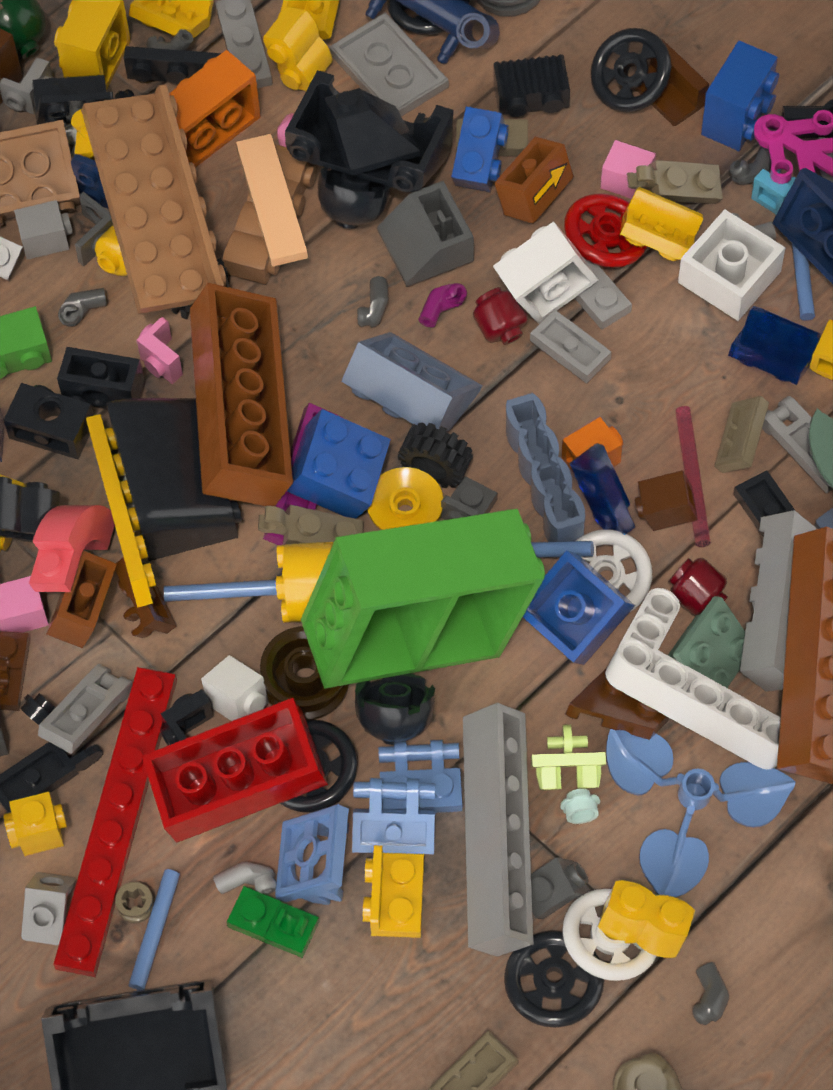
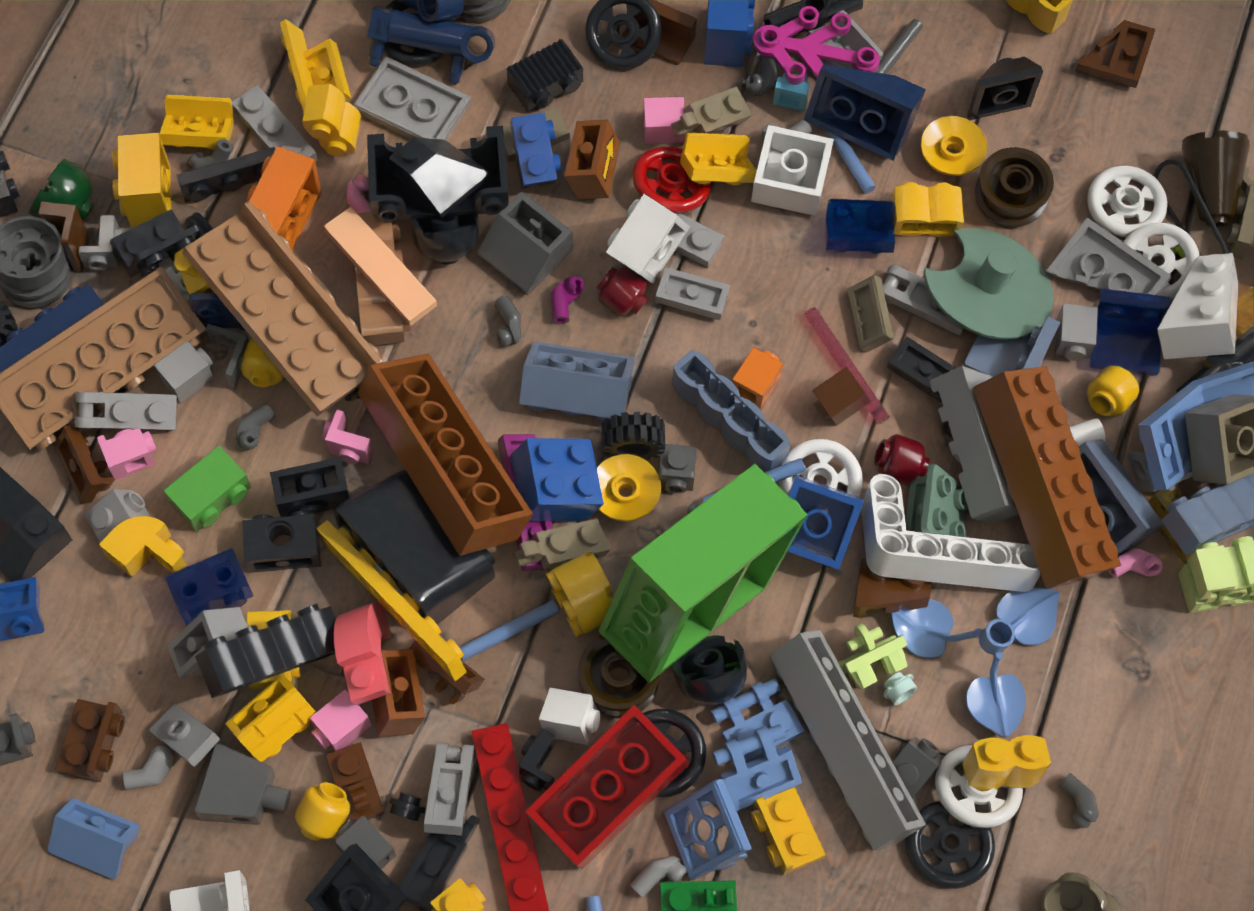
camera: 30 degrees left, 5 degrees up
(603, 489) = (788, 410): clear blue bracket -> none

